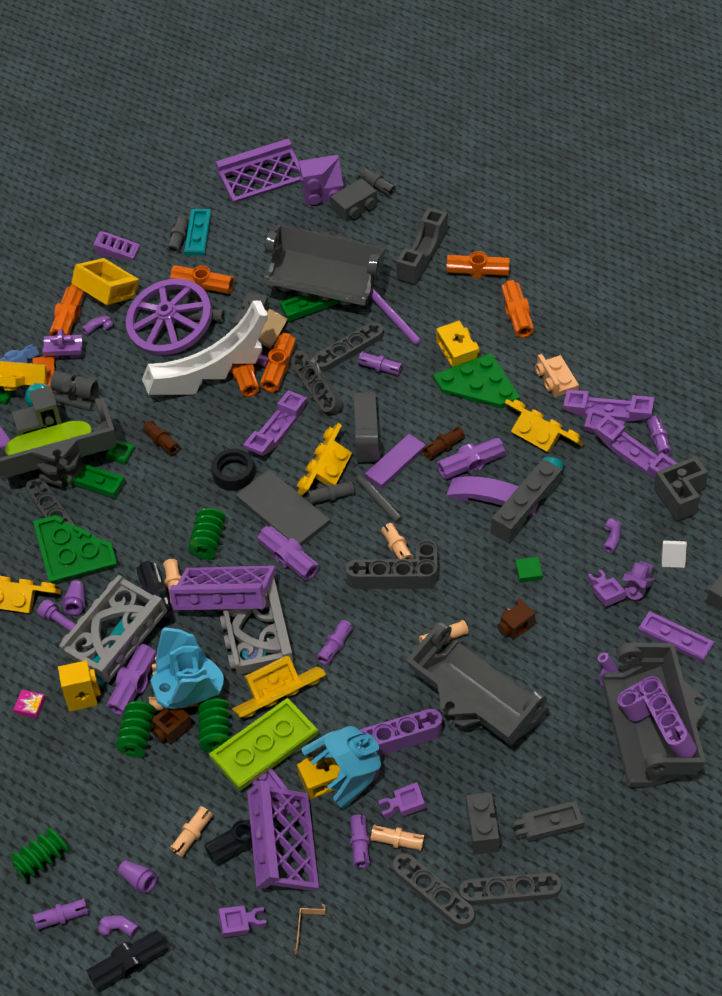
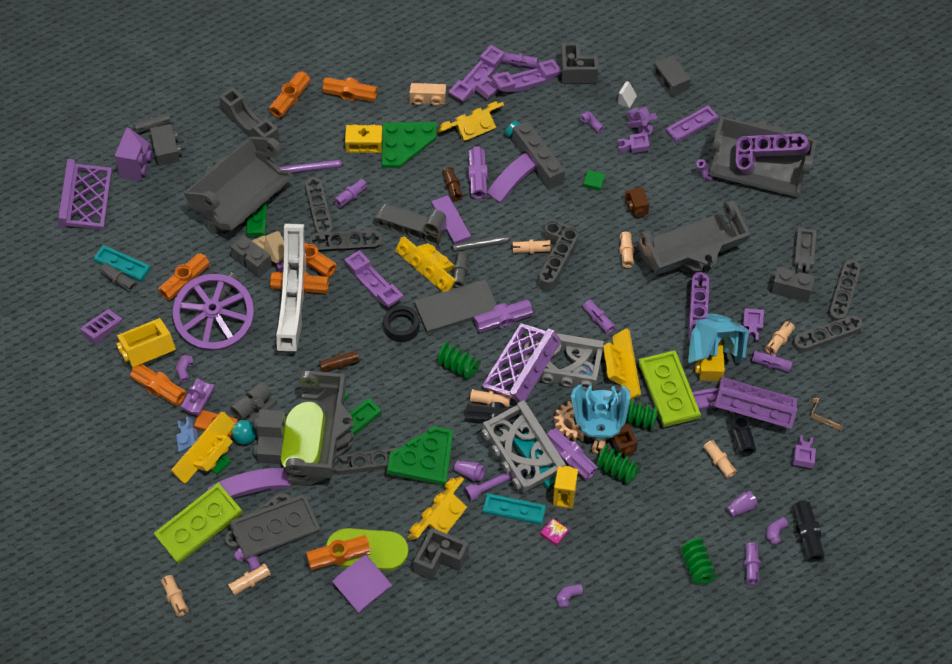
camera: 70 degrees left, 5 degrees up
(44, 657) = (514, 509): none -> teal tile

